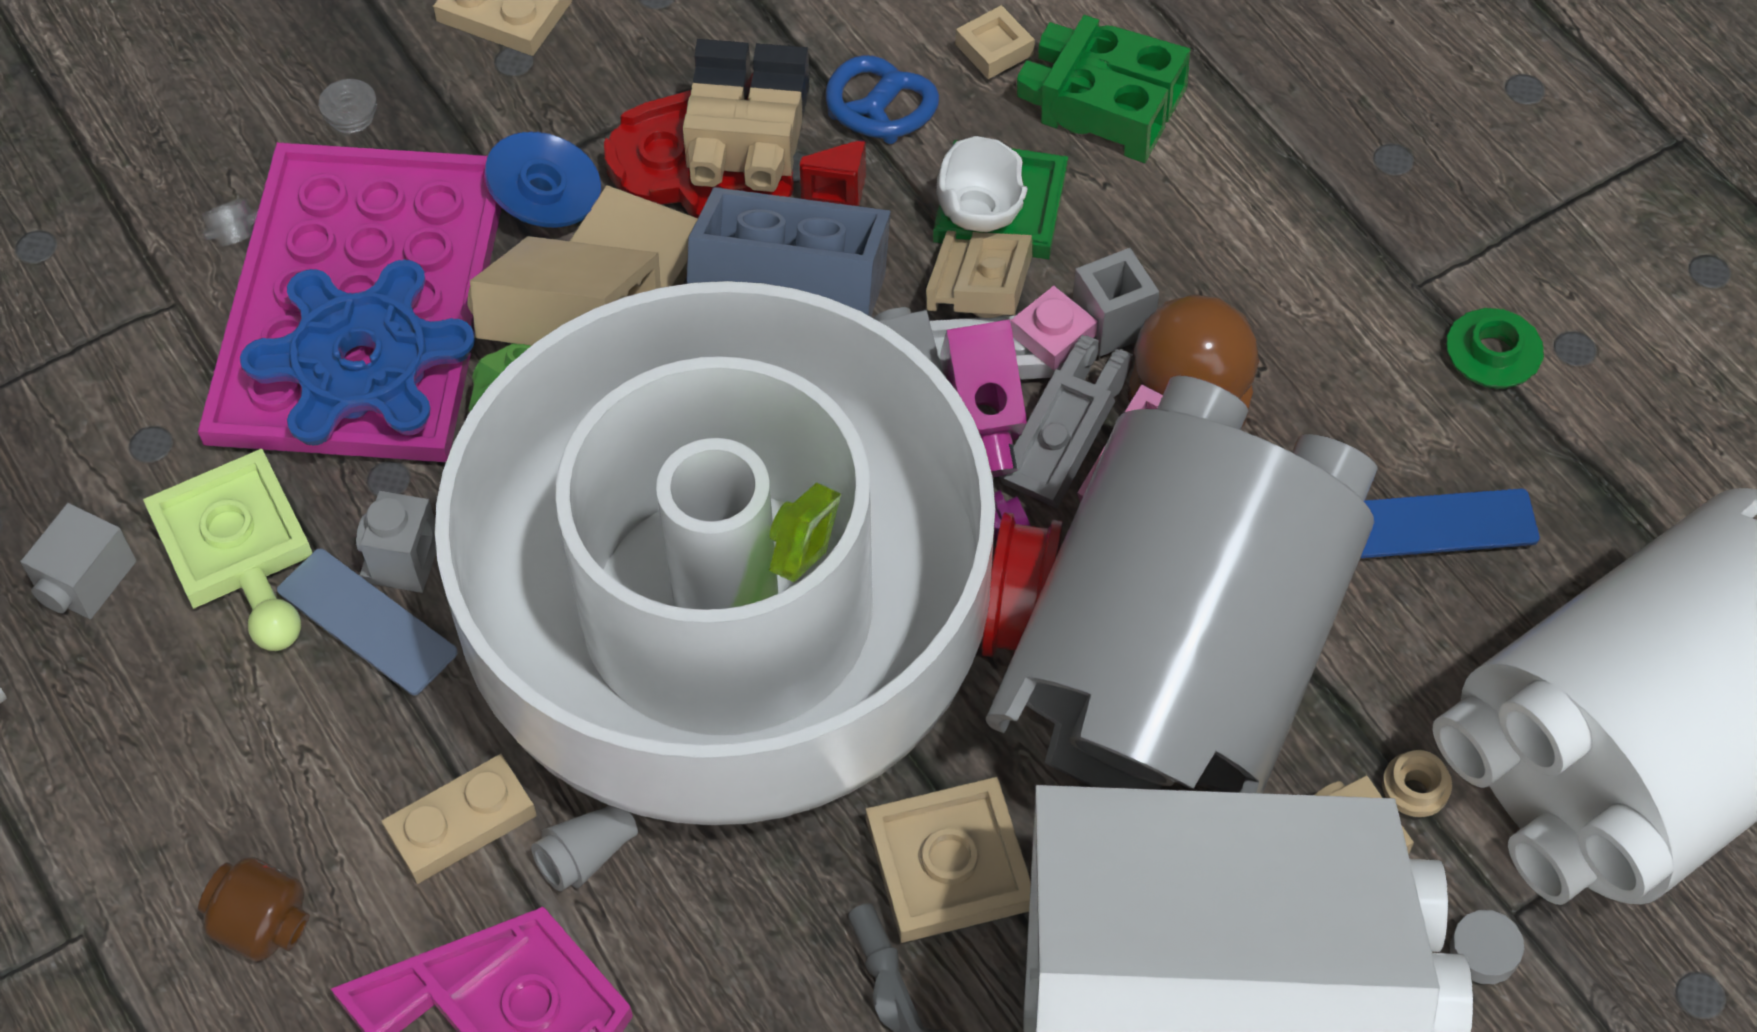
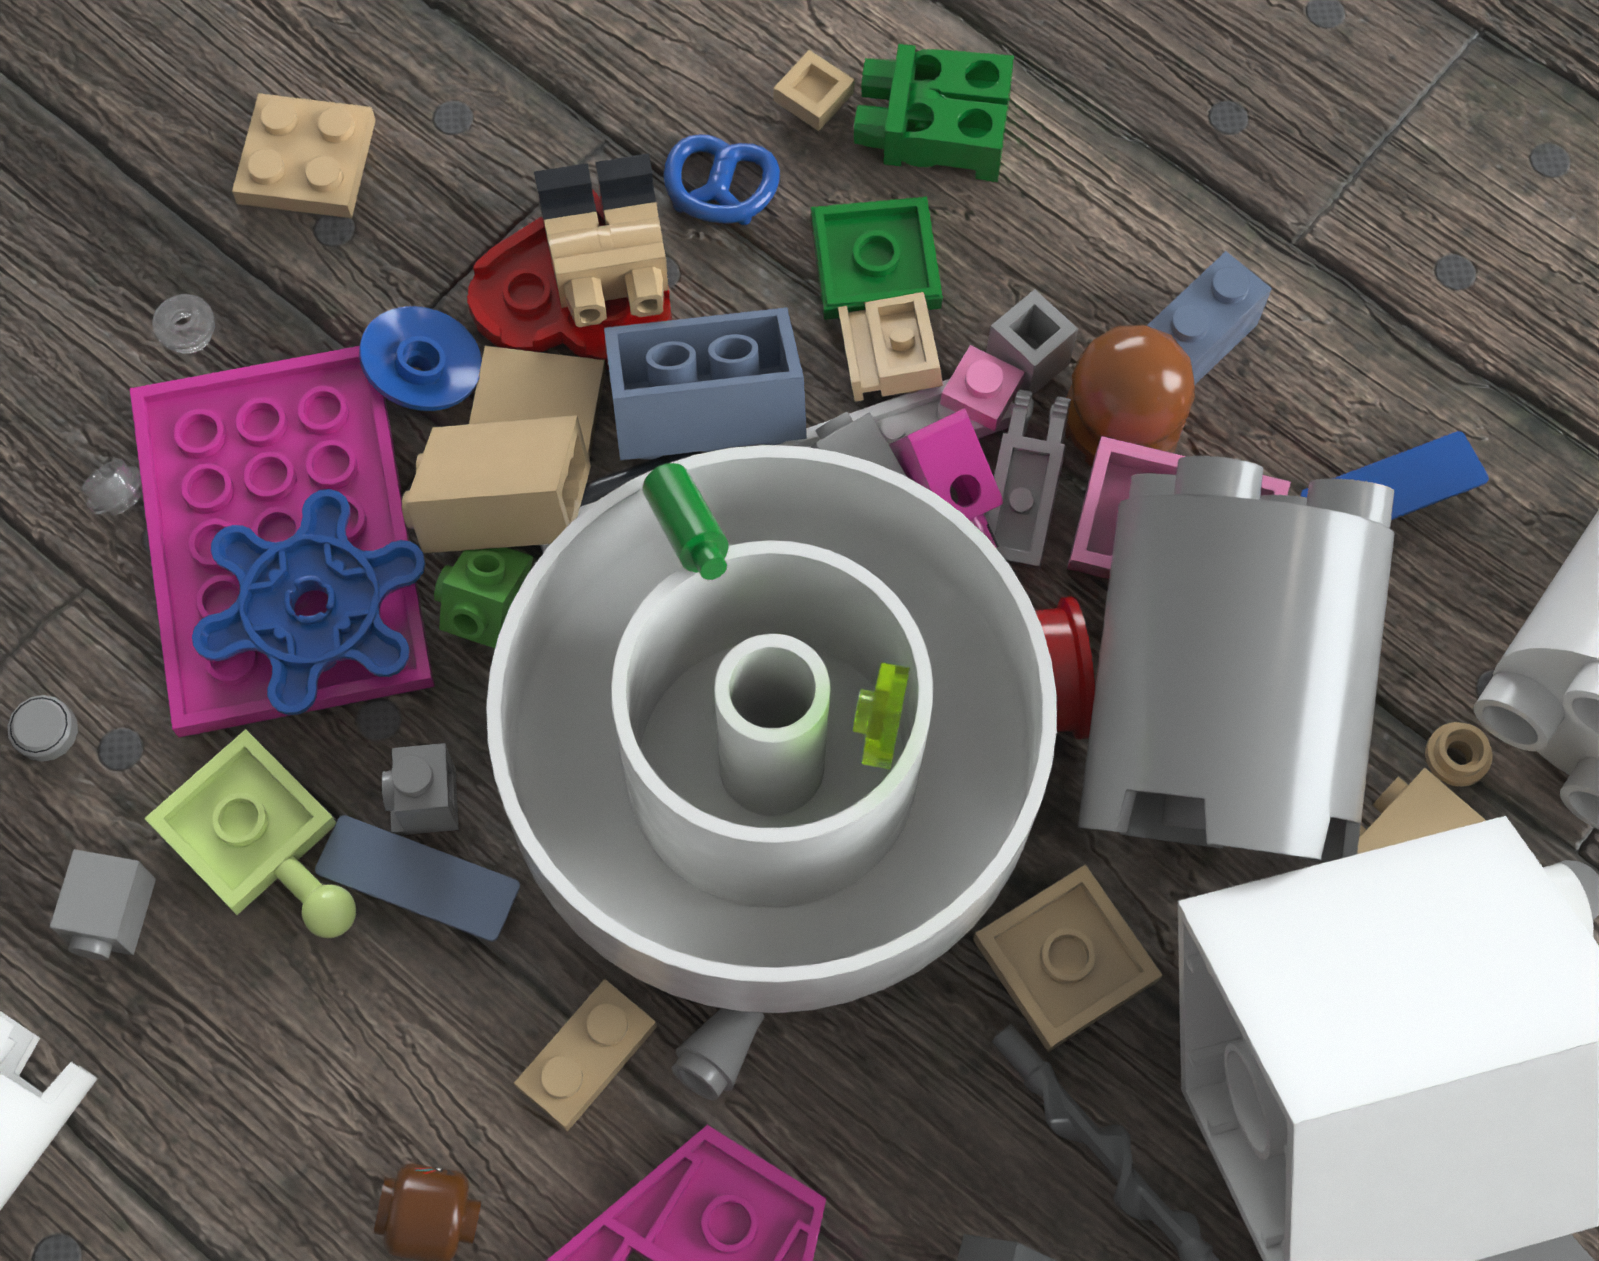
camera: 20 degrees left, 10 degrees up
(89, 407) = (42, 728): none -> light grey piece
(689, 322) = (686, 520): none -> green cylinder
(835, 174) = (710, 278): red slope -> none
(981, 184) = (863, 255): white hair -> none
(1303, 323) = (1214, 312): none -> sand blue brick
(1491, 367) = (1385, 314): green piece -> none

